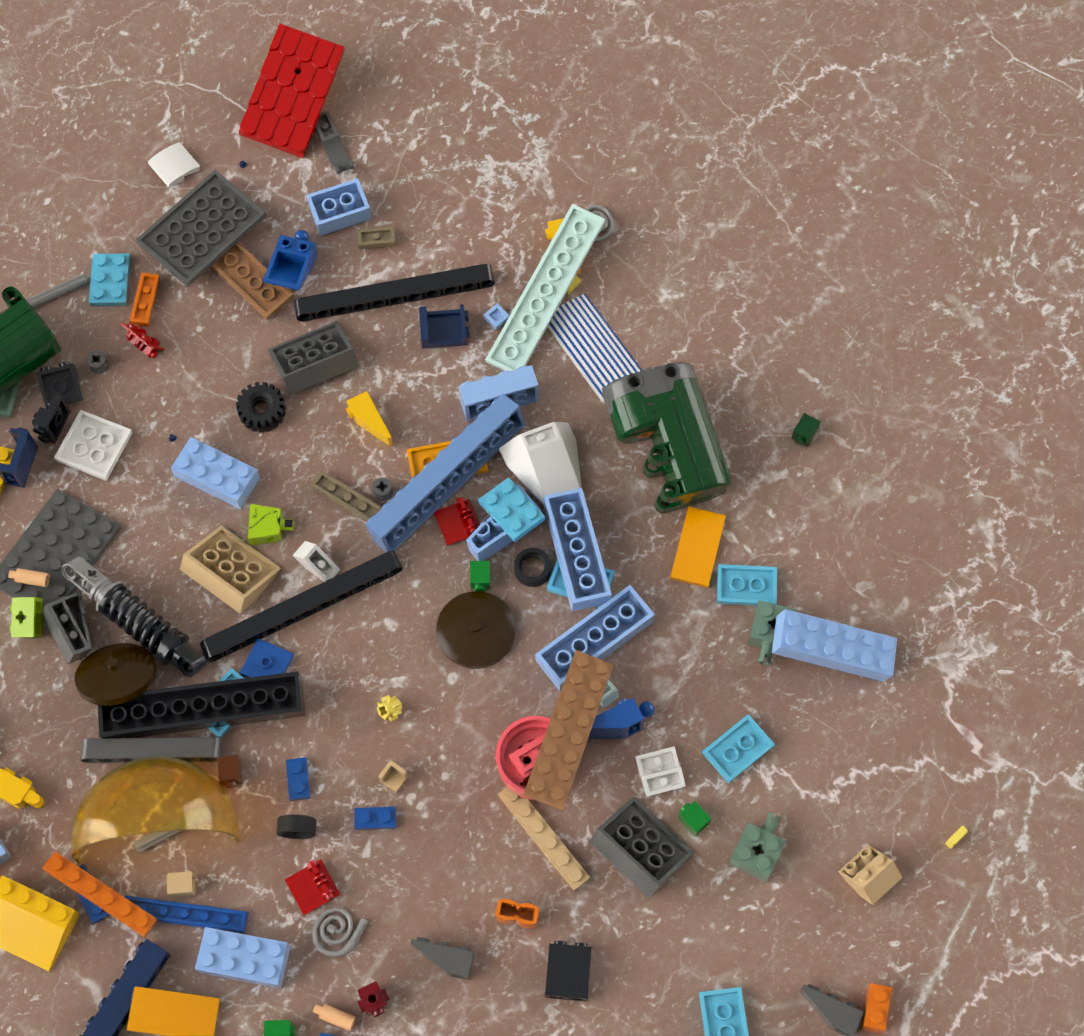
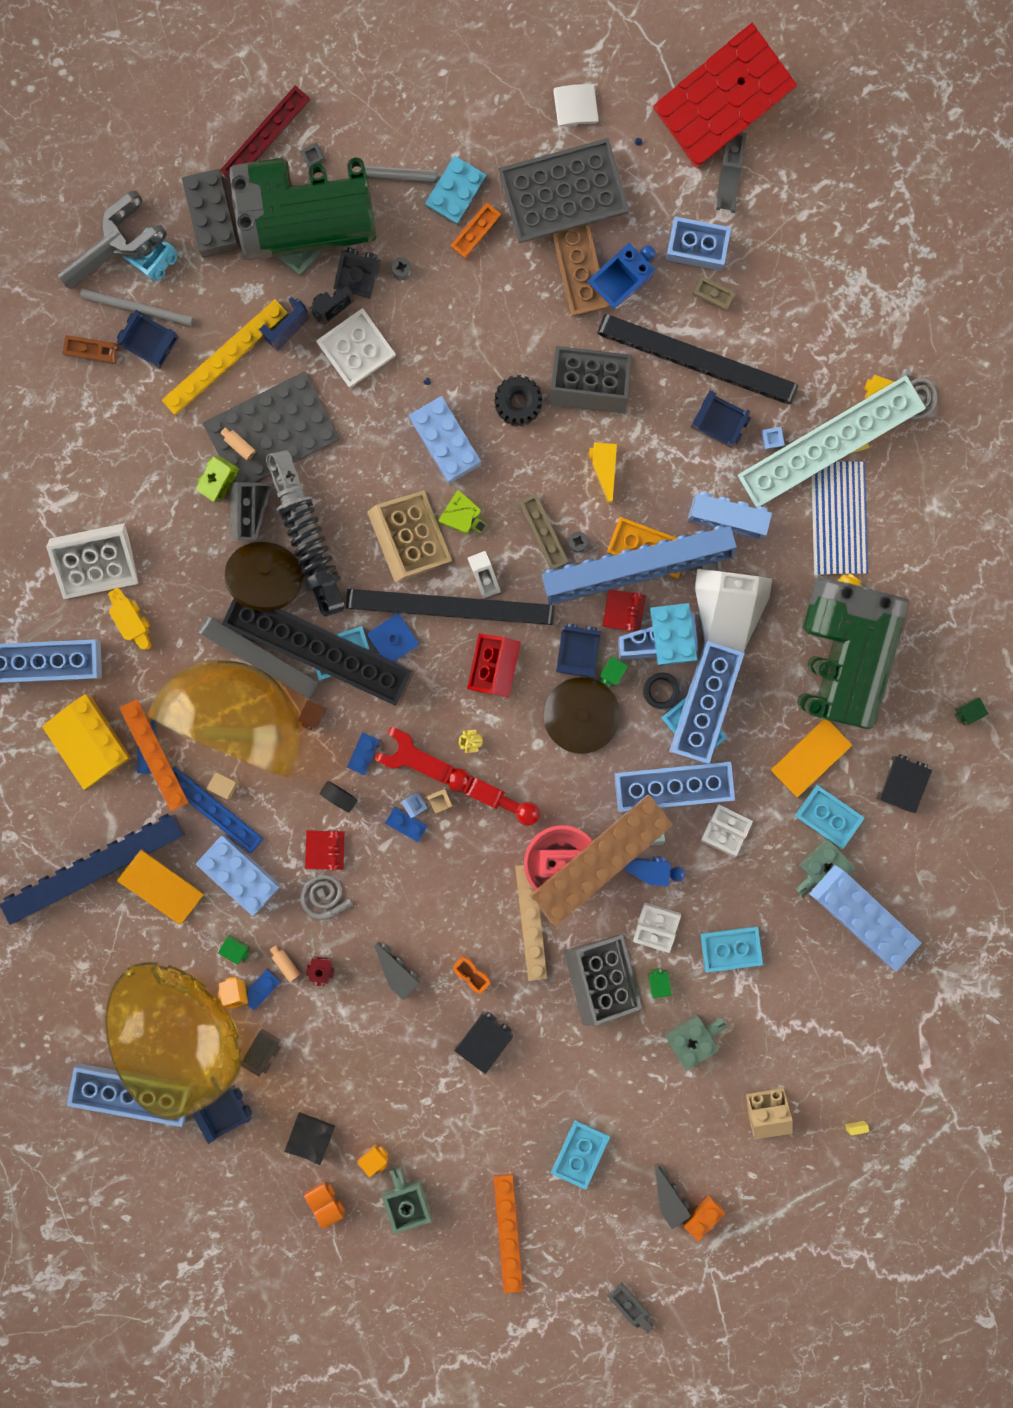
camera: 25 degrees right, 20 degrees up
(140, 340) = (450, 266): red hinge -> none
(371, 631) = (493, 665): none -> red slope
(371, 795) = (414, 805): none -> light blue plate
(398, 748) = (457, 779): none -> red piece
(438, 576) = (578, 650): none -> dark blue panel
(666, 651) = (726, 831): none -> white slope
(792, 520) = (905, 783): none -> black panel

